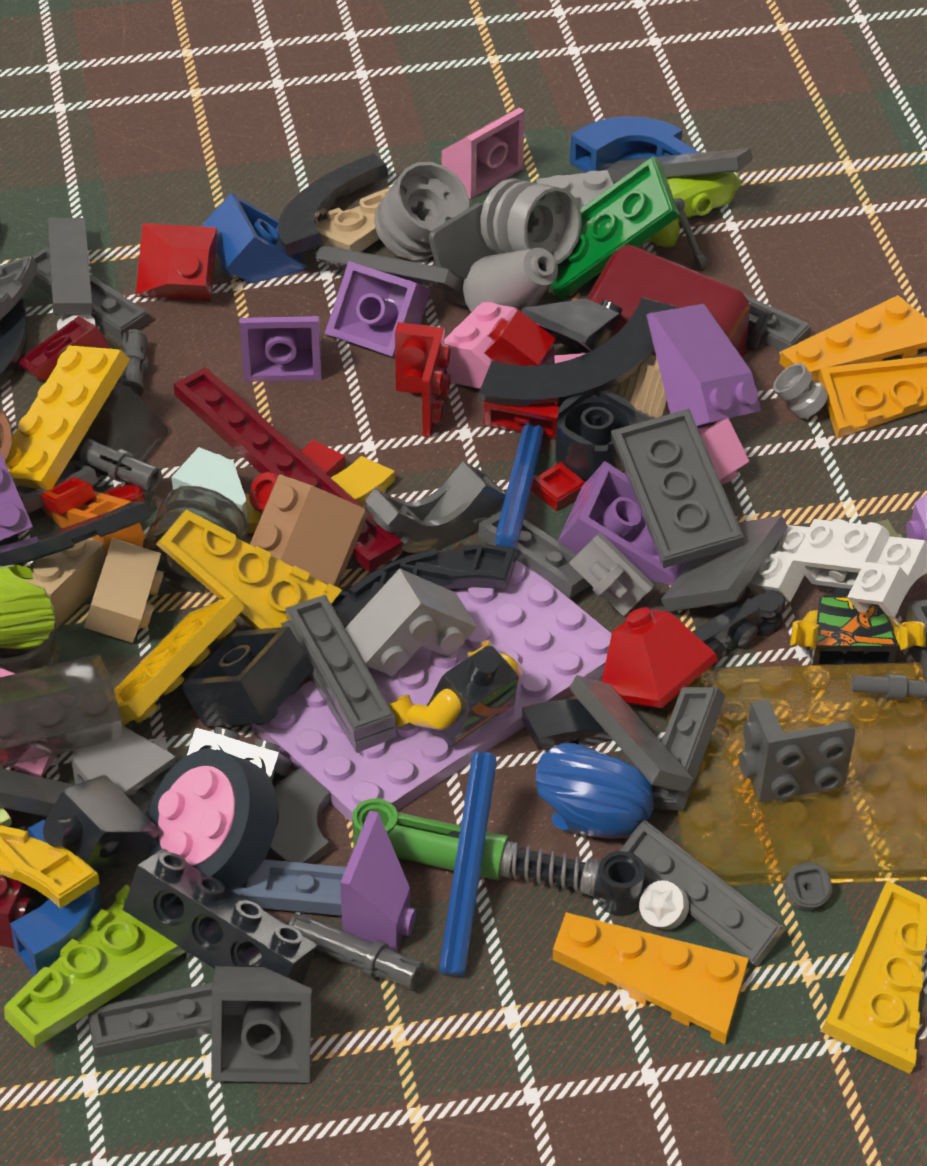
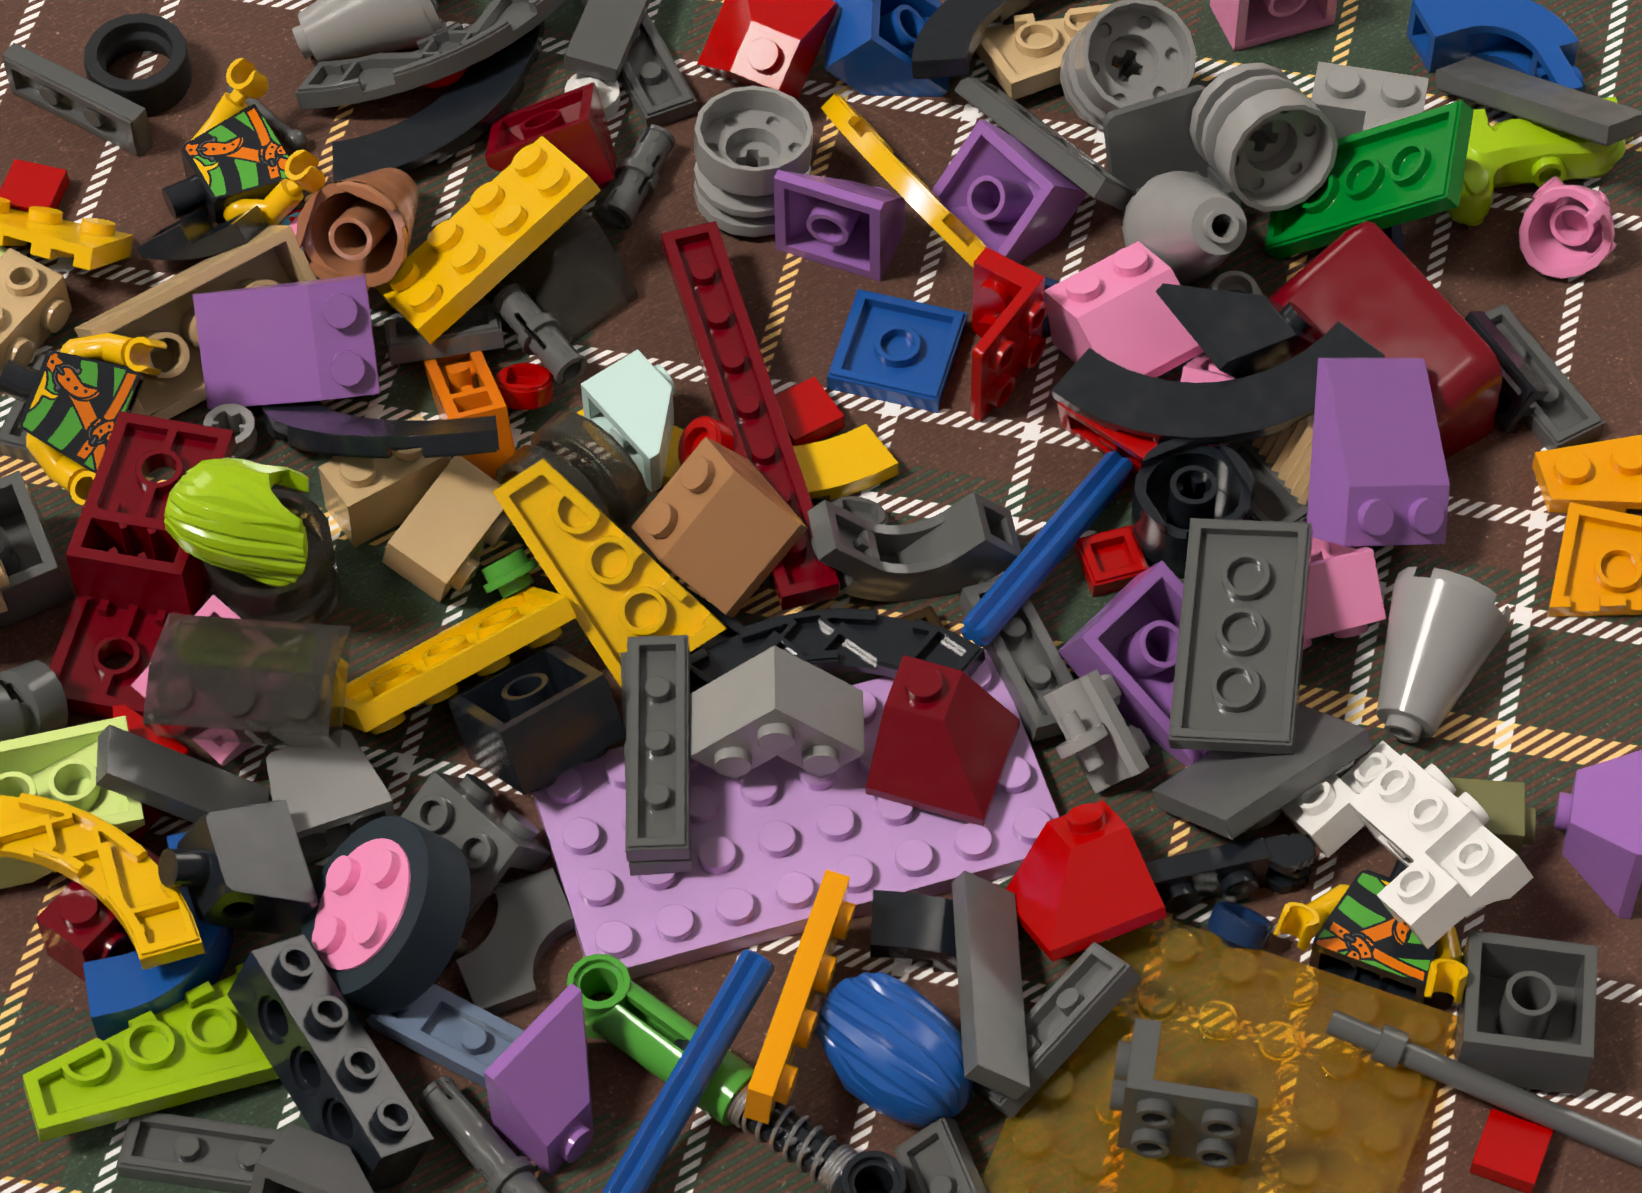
camera: 25 degrees right, 10 degrees up
(67, 495) = (447, 359): red tile -> none
(175, 607) = (509, 573): none -> bright green plate
(207, 326) = (739, 148): none -> light grey wheel
(306, 304) = (902, 178): none -> yellow tile
(356, 412) = (897, 350): none -> blue tile
(465, 695) = (790, 852): torso -> none
(513, 770) = (793, 1017): none -> light orange wing
(518, 341) = (1140, 331): red brick -> none
(519, 607) = (941, 743): none -> dark red slope
(699, 259) = (1502, 169): dark grey hinge -> none
(732, 228) = (1566, 229): none -> bright pink helmet
(759, 657) = (1239, 926): none -> dark blue tile
(788, 463) = (1434, 648): none -> light grey cone
(800, 390) = (1518, 525): light grey wheel -> none

